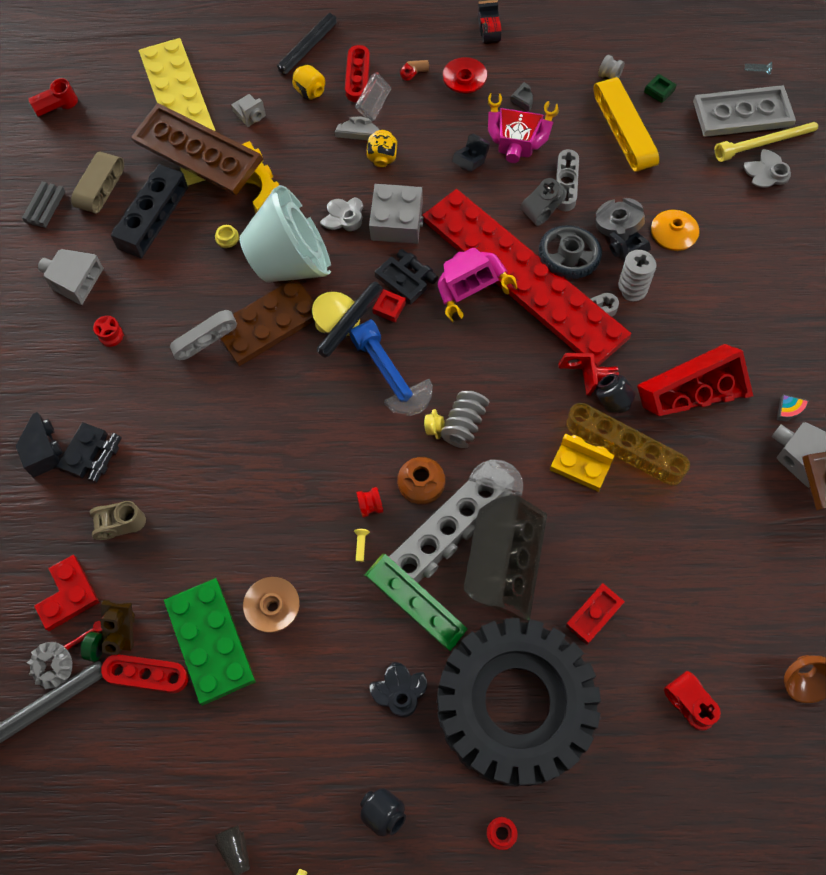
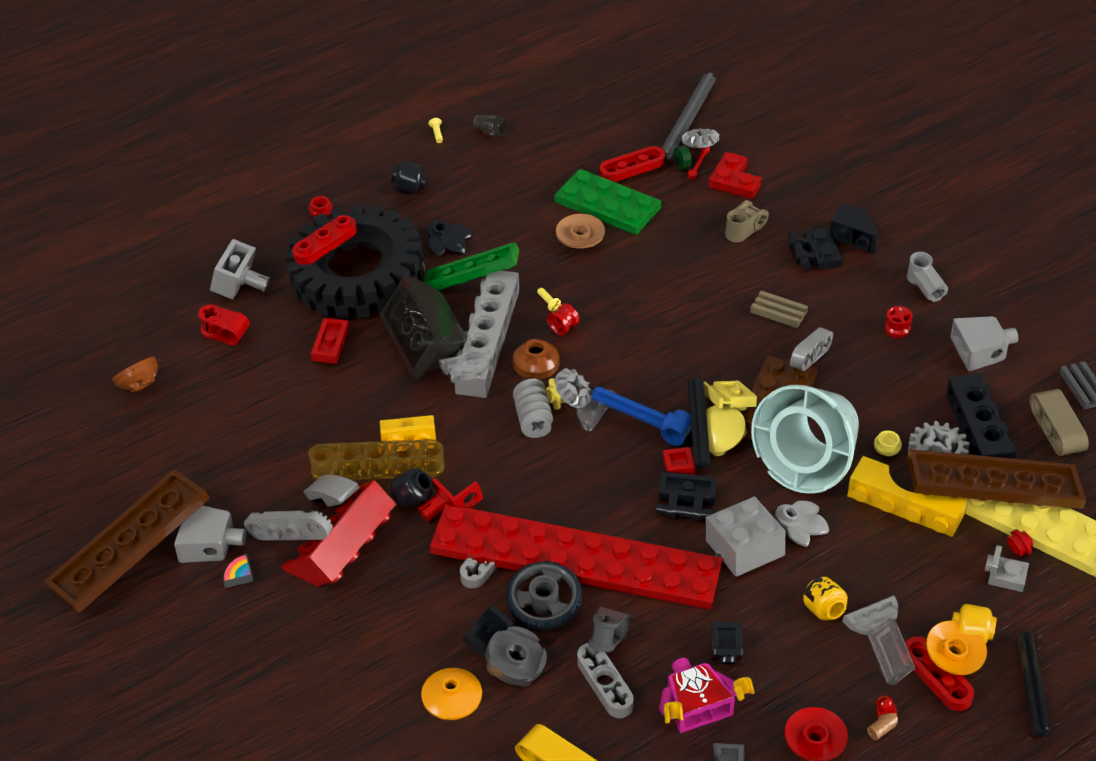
camera: 145 degrees right, 20 degrees down
(39, 363) = (924, 275): none -> light grey piece
(117, 627) = (674, 165): dark brown hips -> none
(173, 391) = (779, 309): none -> dark tan tile
(198, 209) = (938, 439): none -> light grey gear
(221, 118) = (1020, 543): none -> red plate
(304, 333) = (730, 393): none -> light yellow plate
(337, 68) = (969, 648): none -> light orange dish
(423, 406) = (568, 392): none -> light grey gear
(468, 274) = (620, 513): dark pink torso -> none
(532, 736) = (324, 240): none -> red plate
(637, 275) = (457, 591): light grey piece -> none
(648, 770) = (235, 270): none -> light grey brick
(683, 429) = (331, 489): none -> light grey slope
(743, 399) = (288, 525): none -> light grey plate

